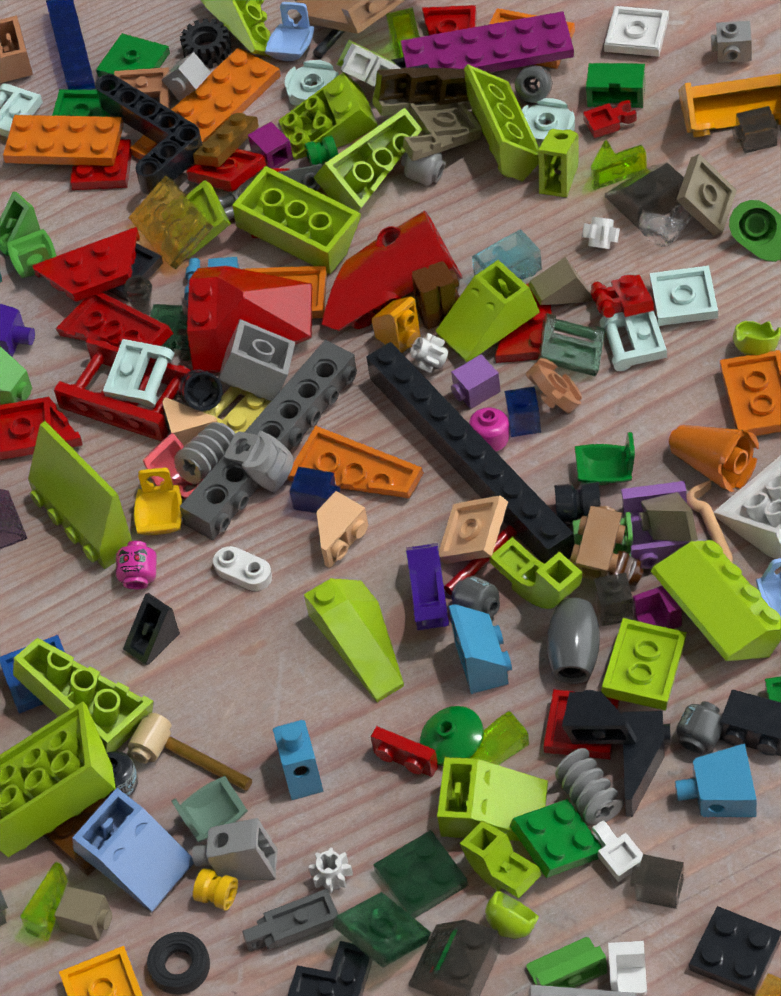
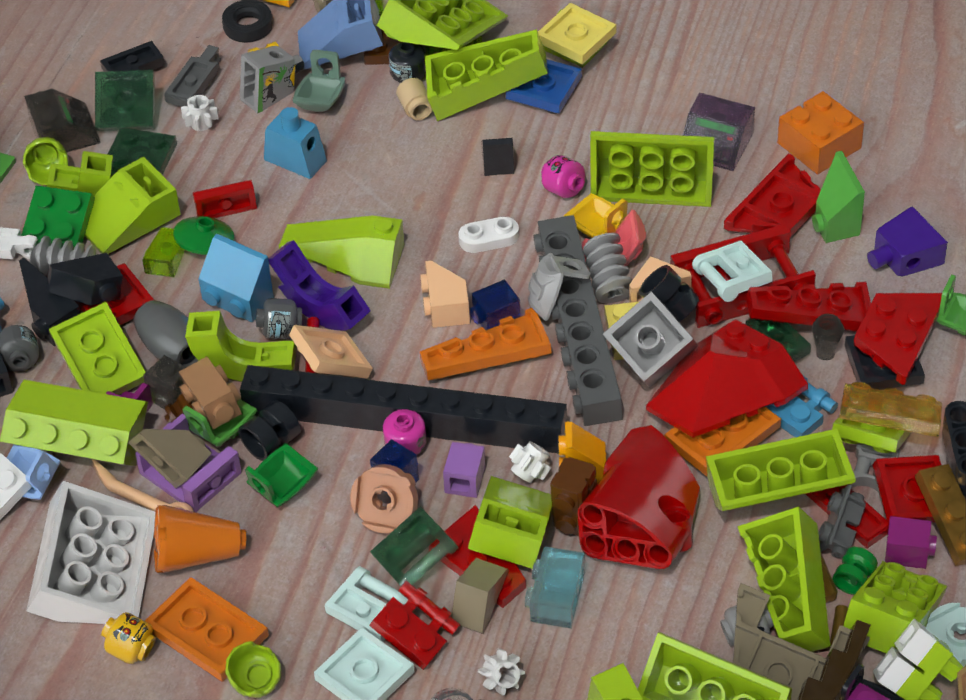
camera: 130 degrees right, 5 degrees down
(208, 763) = (361, 119): pearl gold bar -> none

